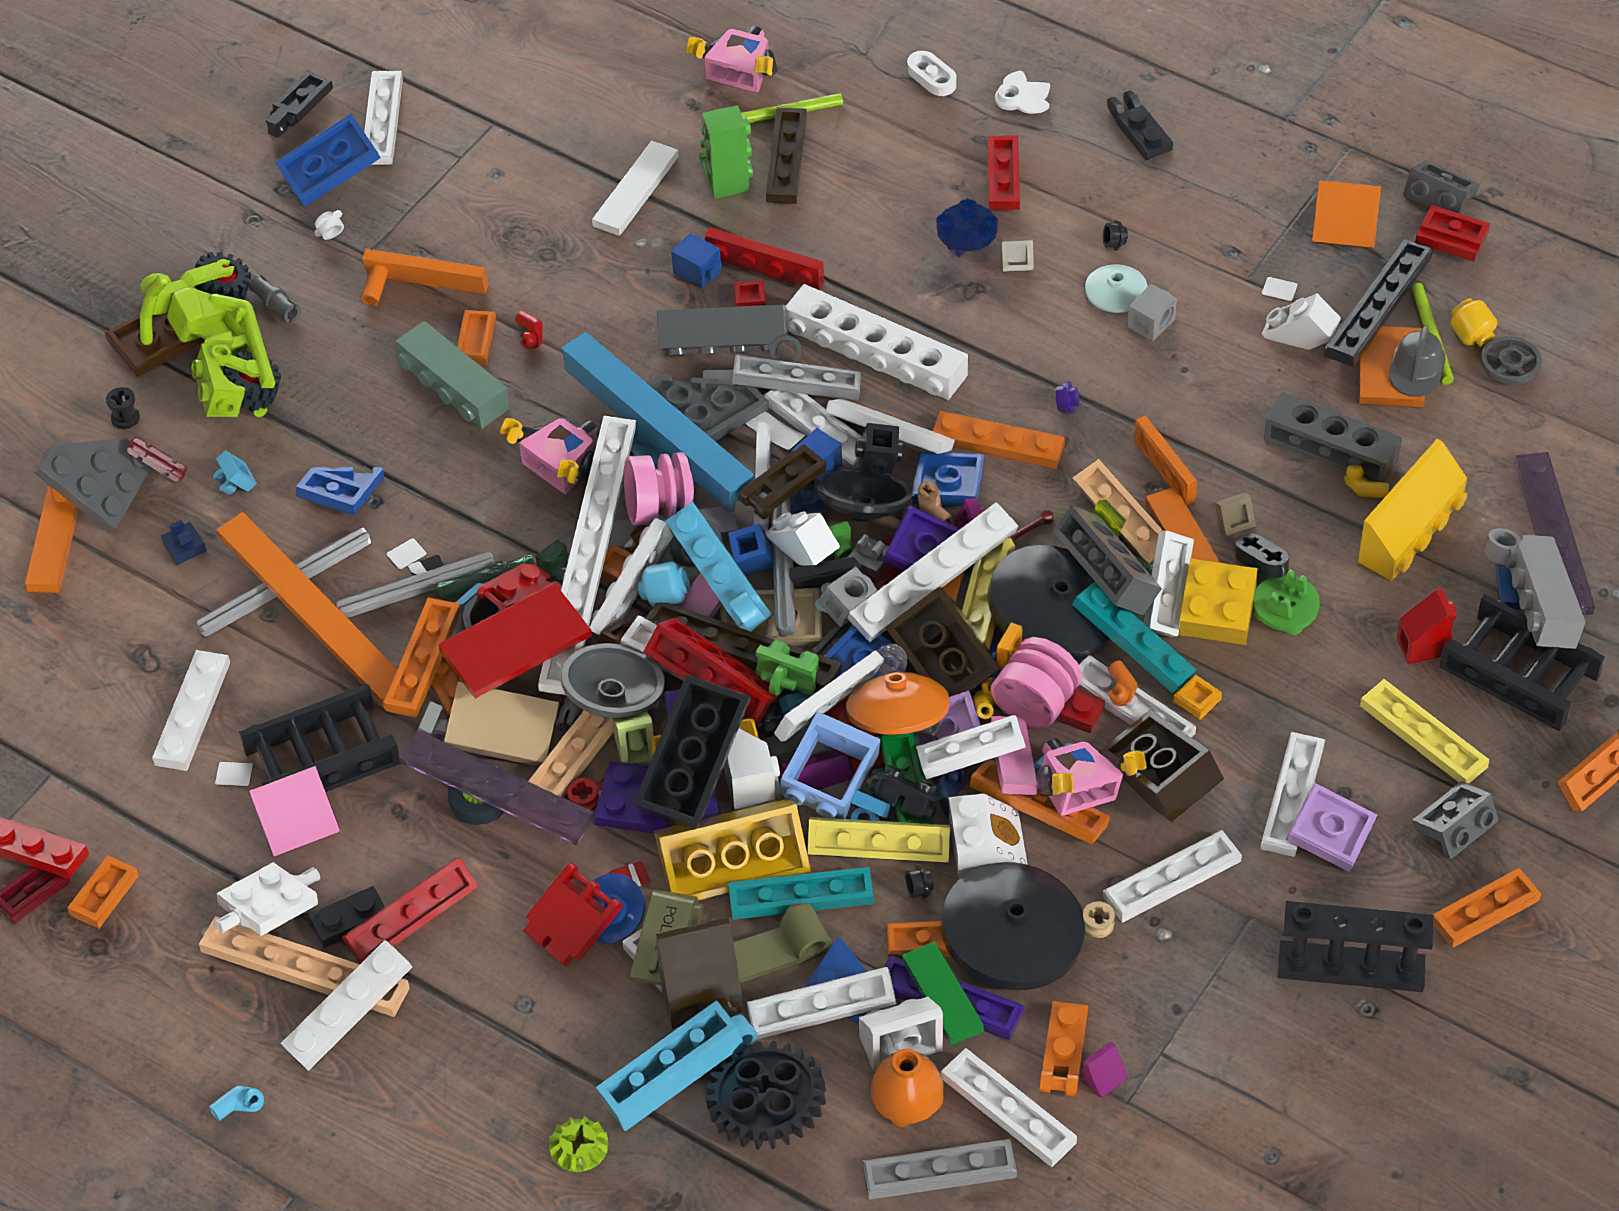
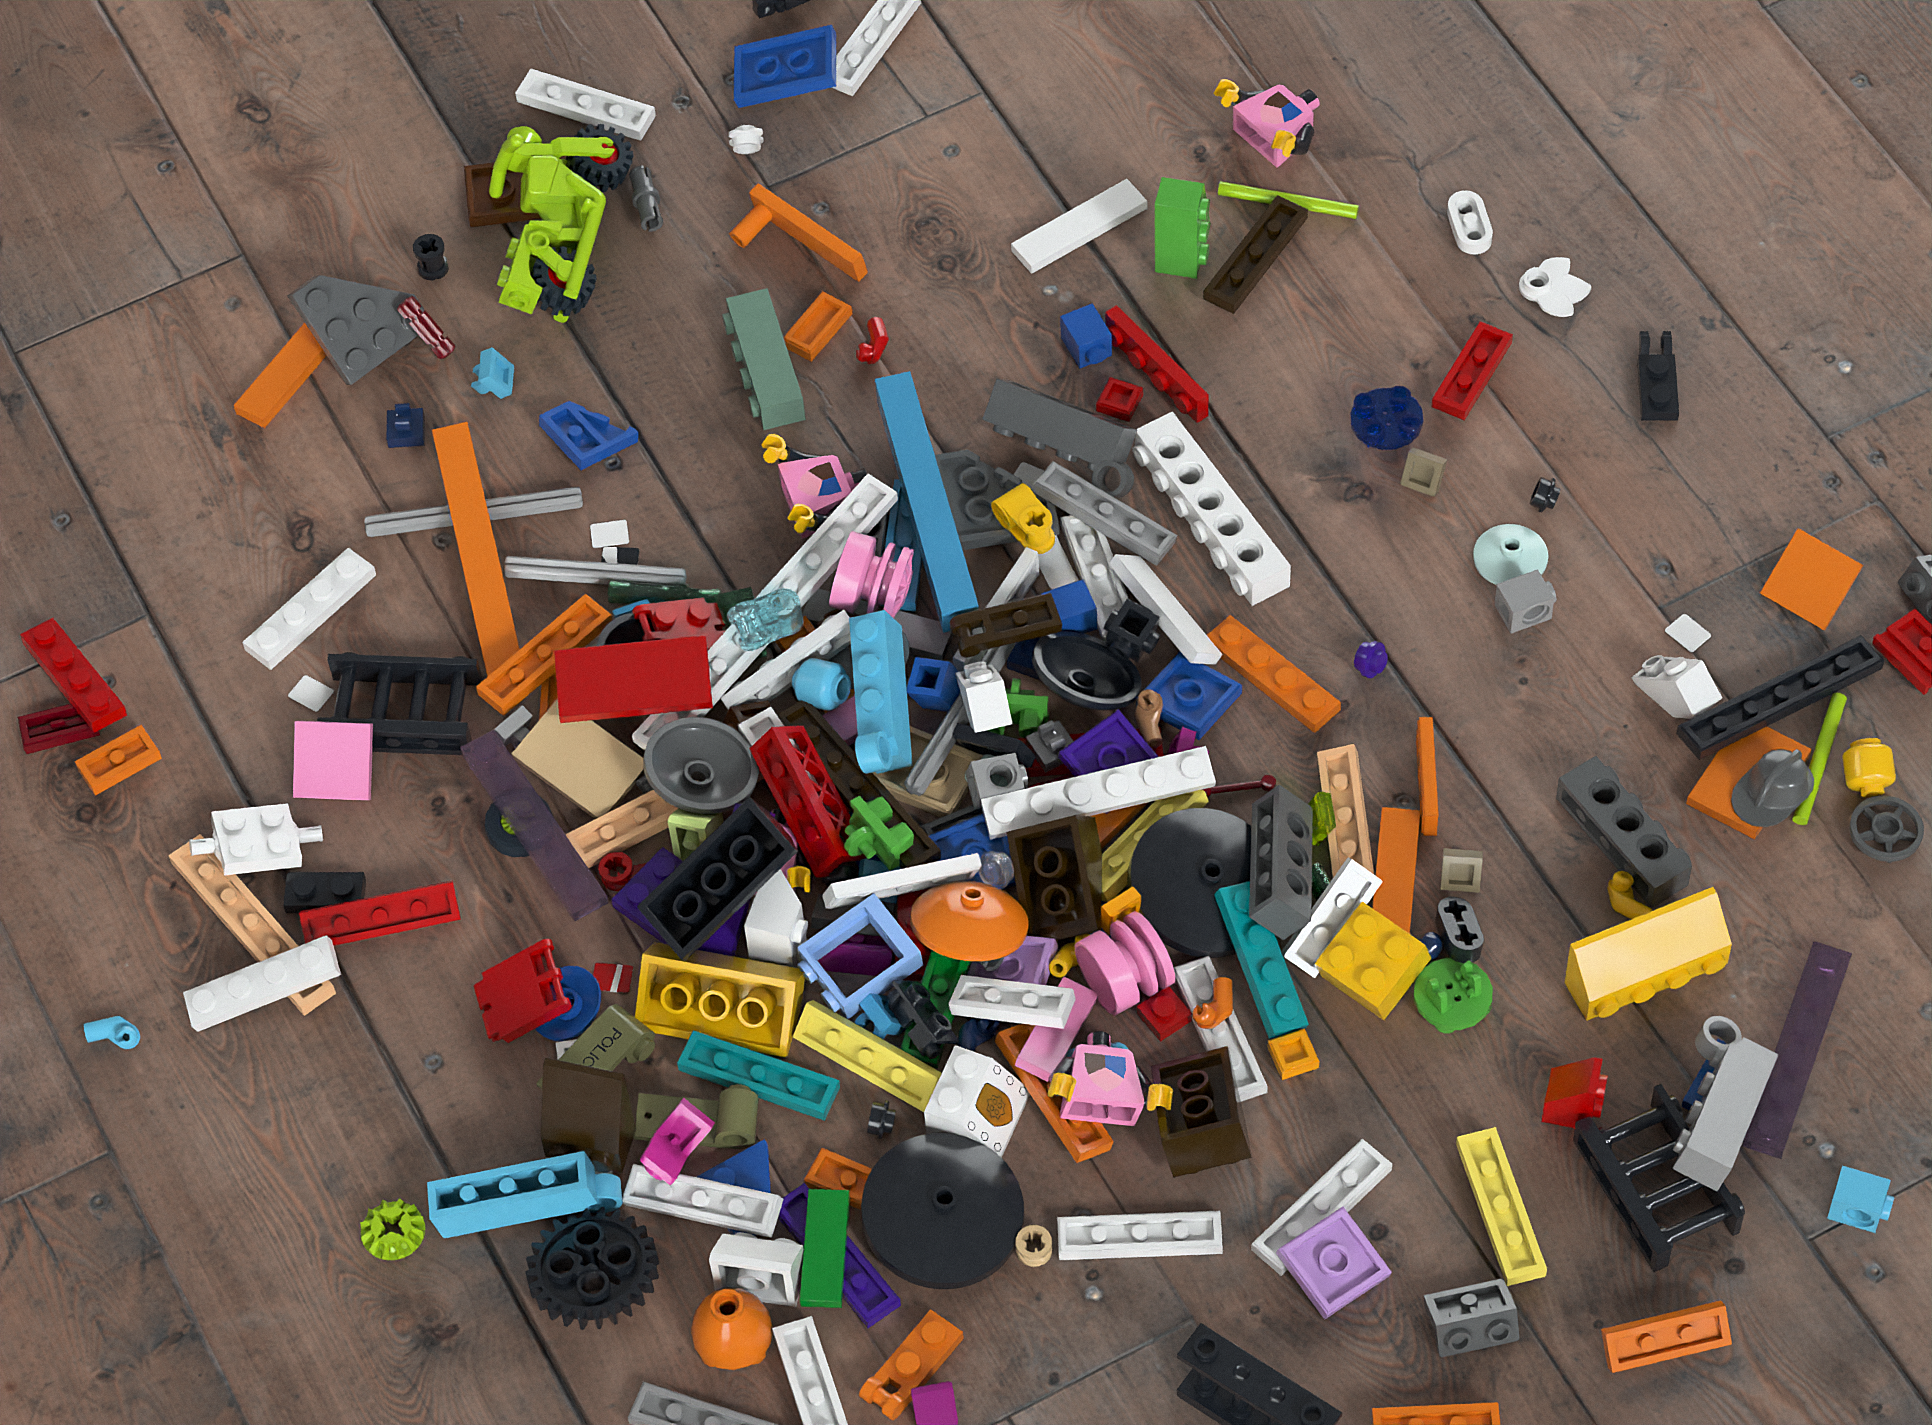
camera: 30 degrees right, 5 degrees up
(174, 248) = (585, 104): none -> white plate
(592, 552) = (765, 620): none -> clear light blue piece
(739, 399) = (1025, 518): none -> yellow piece
(772, 963) = (675, 1141): none -> dark pink bracket

